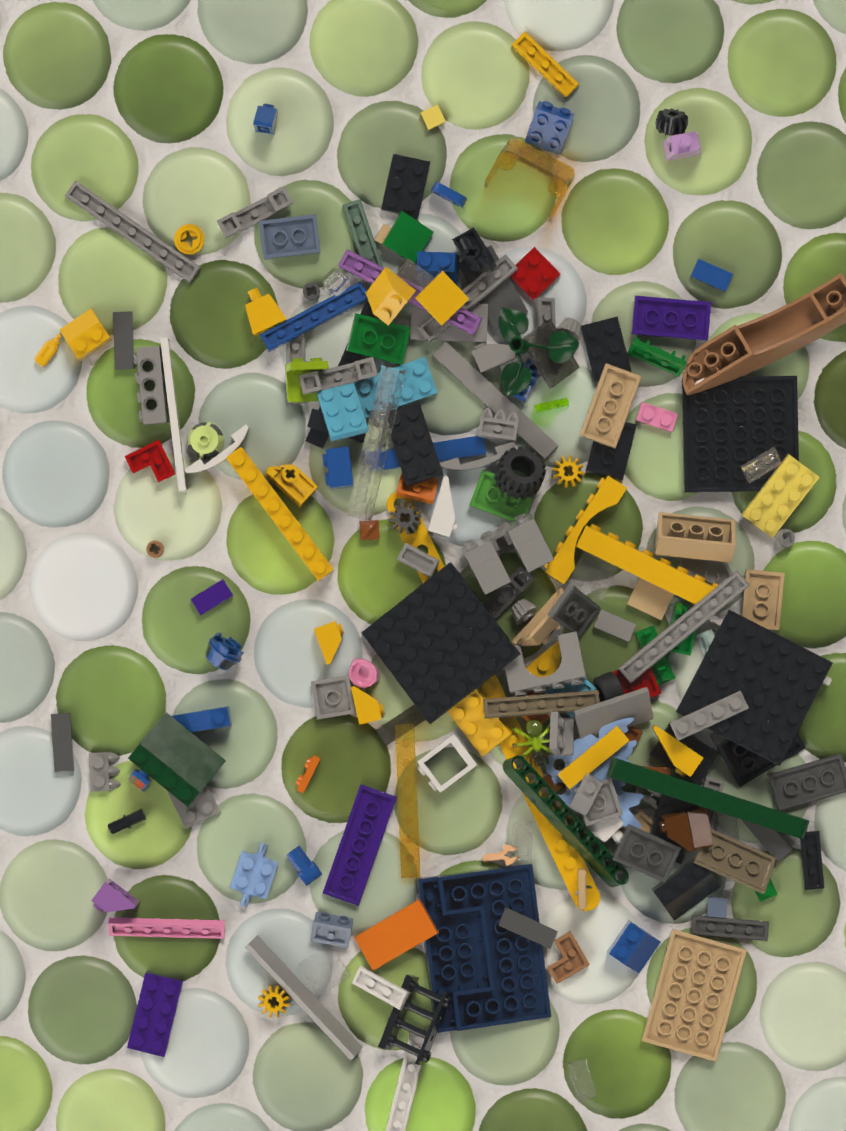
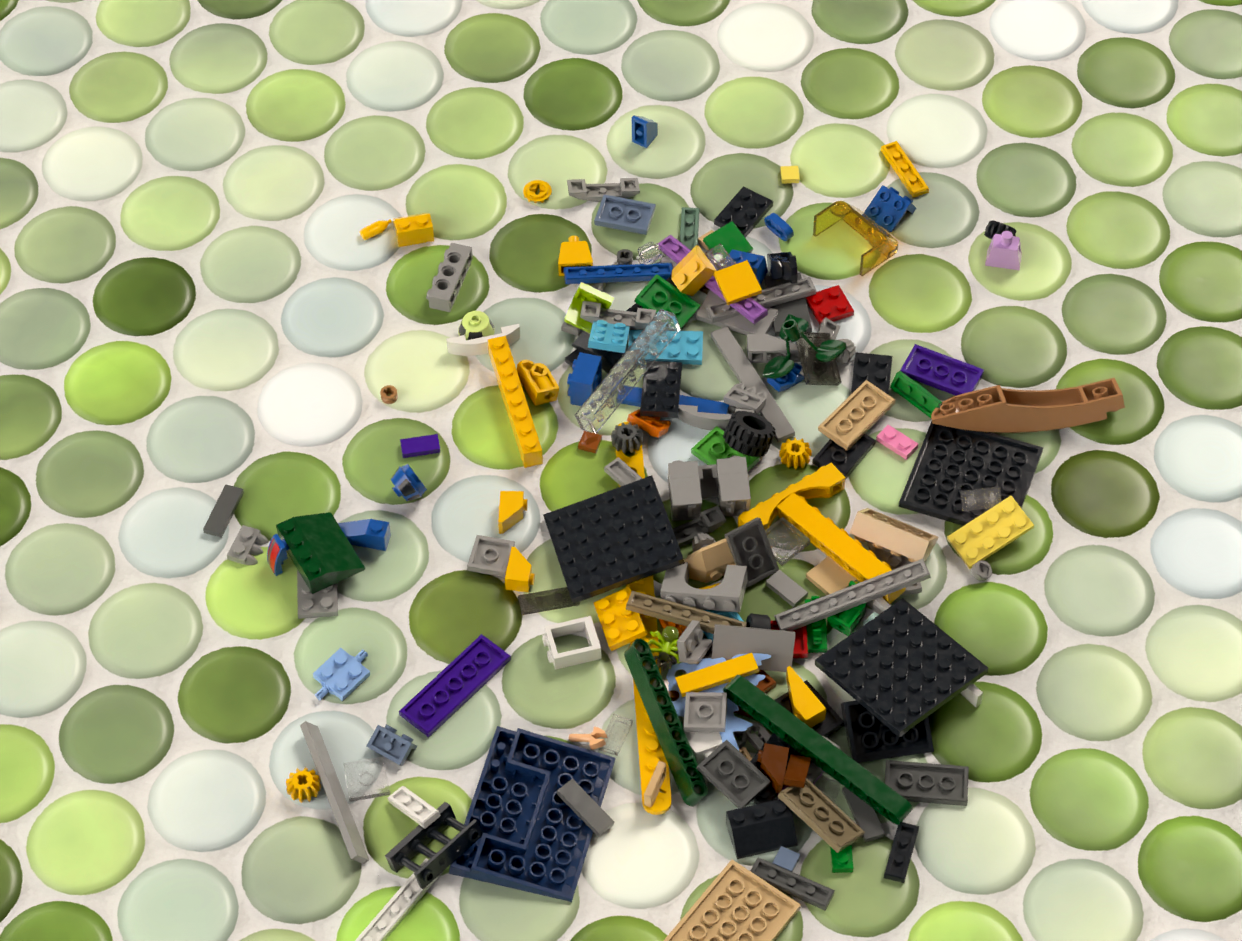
camera: 25 degrees right, 35 degrees down
(113, 898) = (198, 640): medium lavender slope -> none
(123, 340) = (446, 235): dark grey tile -> none
(126, 821) = (246, 590): black axle -> none
(132, 231) = (492, 174): light grey tile -> none
(153, 456) = (422, 326): red plate -> none
(155, 1014) = (182, 759): dark purple plate -> none
(166, 928) = (235, 687): bright pink plate -> none
(173, 414) = (458, 303): white tile -> none
(303, 781) = (437, 607): orange plate -> none
(306, 868) = (393, 683): blue piece -> none
(363, 673) = (530, 544): bright pink piece -> none
(396, 934) = (452, 767): orange tile -> none
(407, 800) = (519, 661): clear yellow tile -> none
(443, 514) = (663, 447): white slope -> none
(550, 405) = (800, 399): clear neon green tile -> none
(572, 960) = (615, 855): medium nougat plate -> none
(586, 794) = (696, 693): light grey slope -> none
(633, 946) = (685, 862): blue slope -> none
(709, 715) = (846, 667): light grey plate -> none
(711, 275) = (992, 354): blue tile -> none
(763, 598) = (944, 606): tan plate -> none

